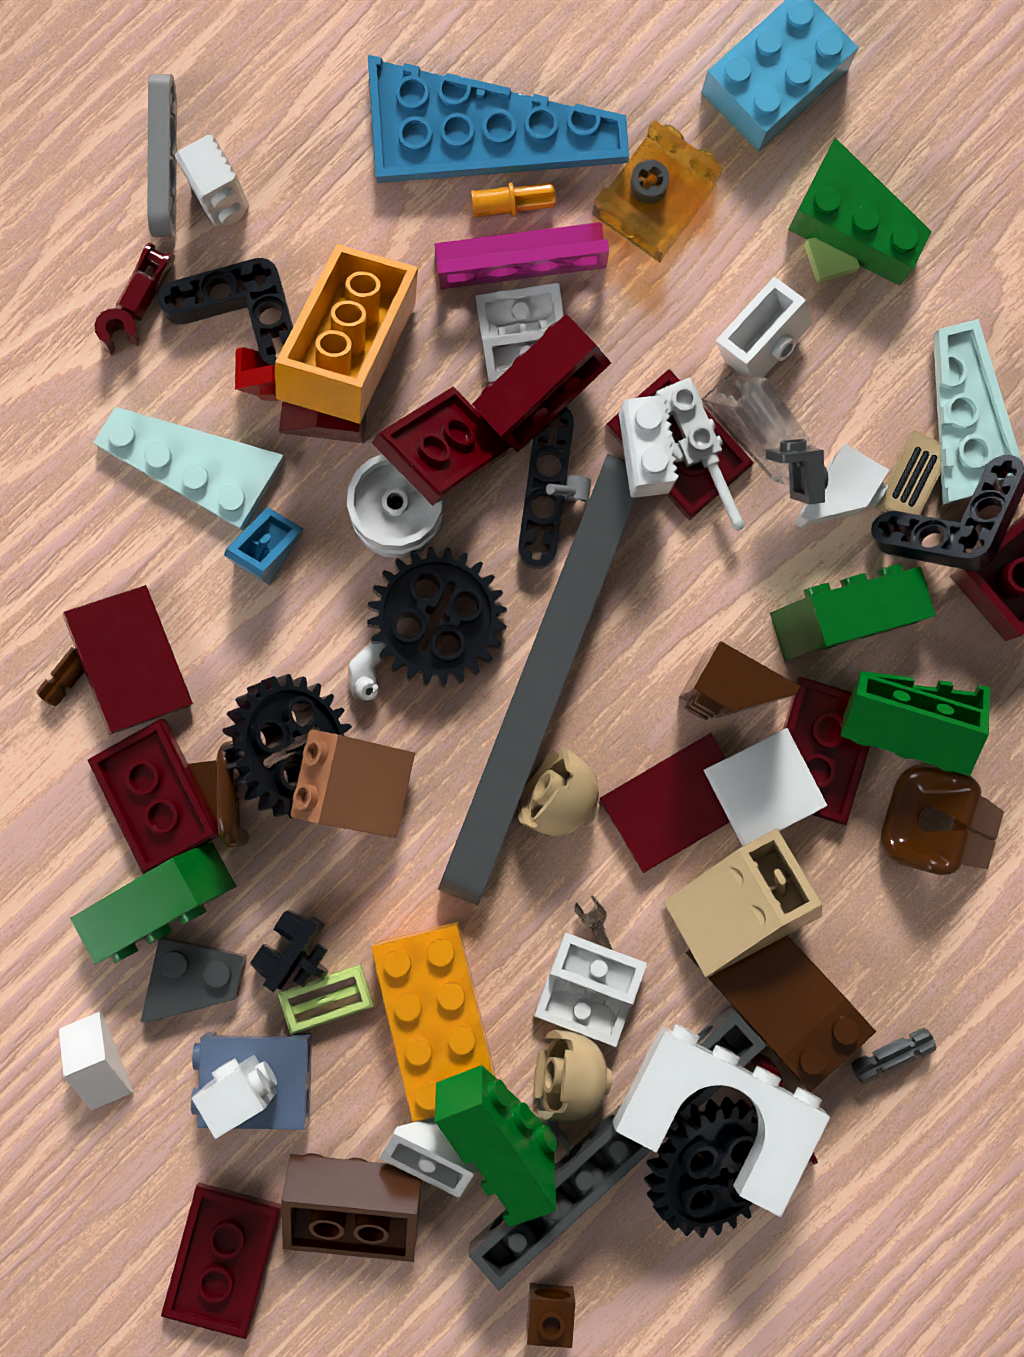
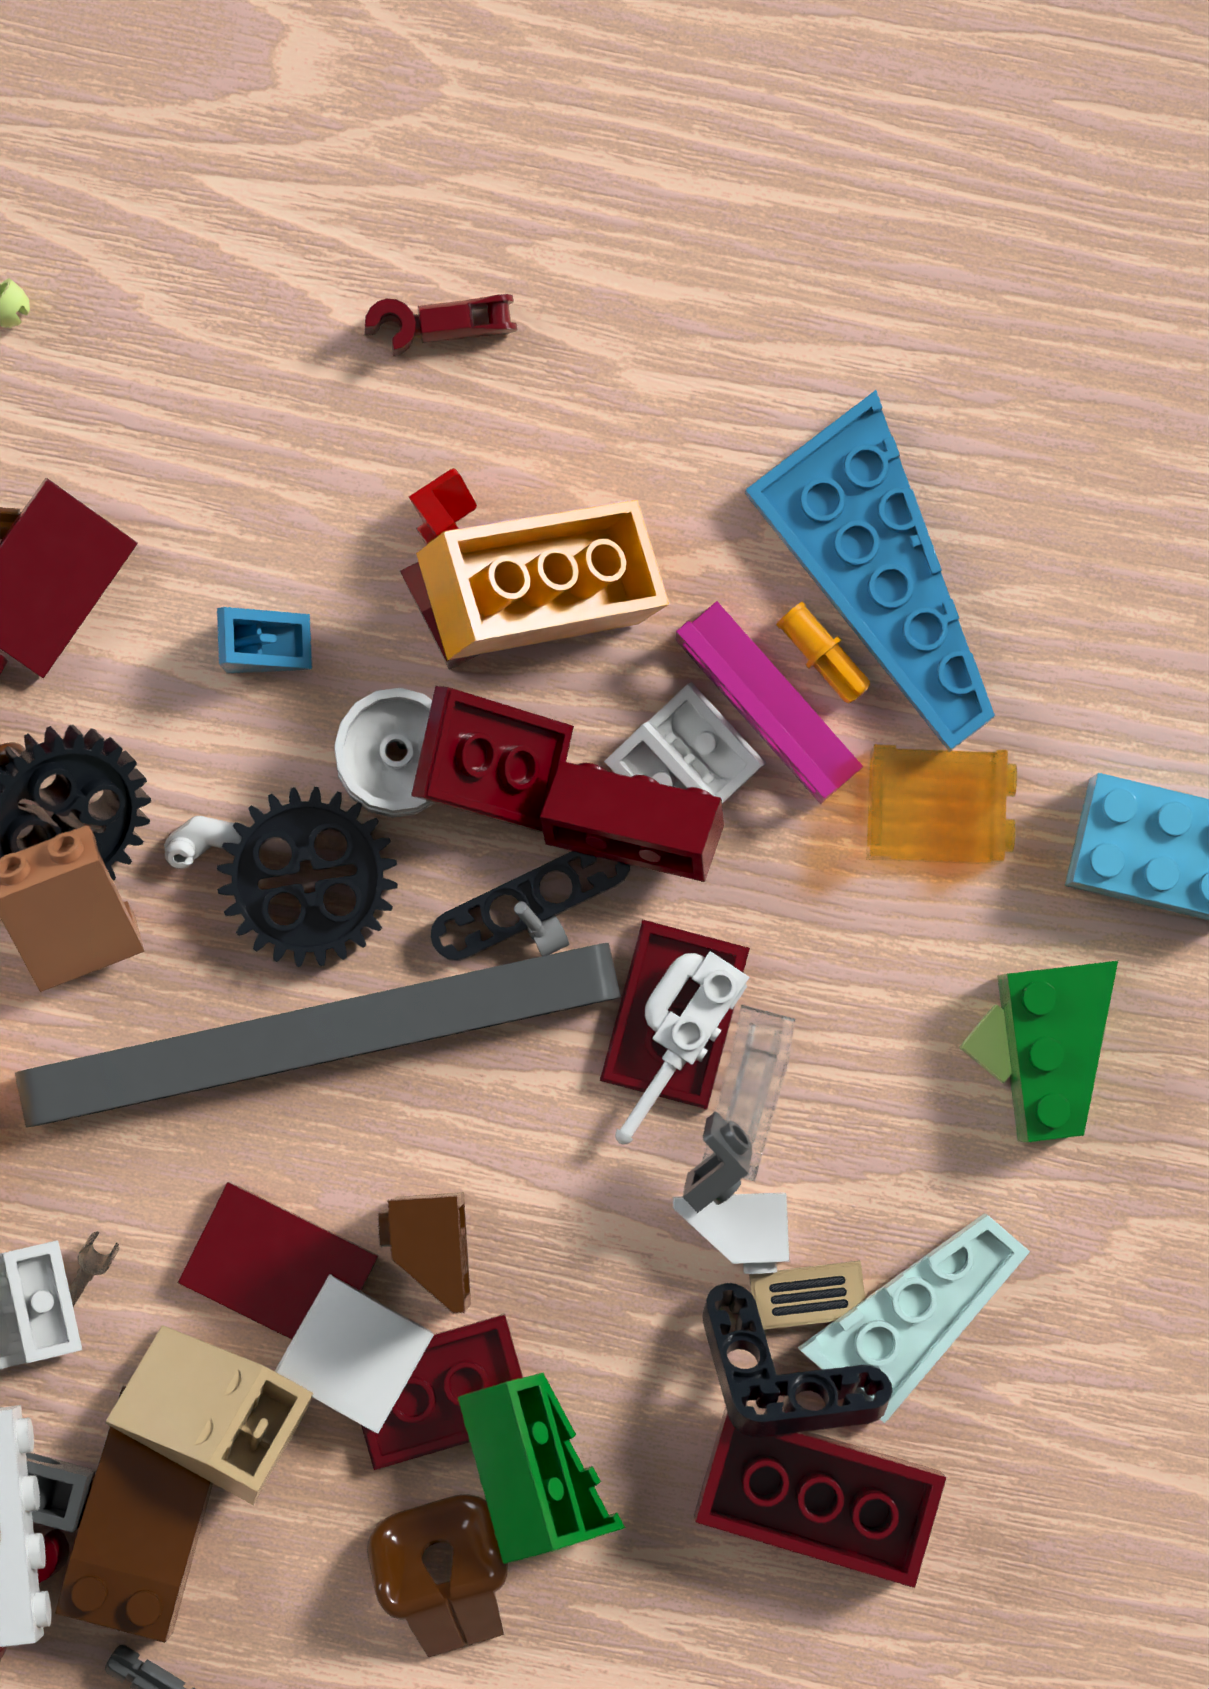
camera: 60 degrees right, 0 degrees up
(161, 155) = (615, 244): light grey beam -> none
(200, 466) = (305, 517): light aqua wing -> none
(213, 181) = (616, 323): white brick -> none
(254, 297) = (525, 448): black beam -> none
(561, 796) = (201, 1139): tan cylinder -> none
(645, 169) = (954, 777): dark grey bush -> none
(647, 446) = (634, 982): white brick -> none
(765, 330) = (854, 1025): white brick -> none
(852, 611) = (610, 1325): green wedge -> none

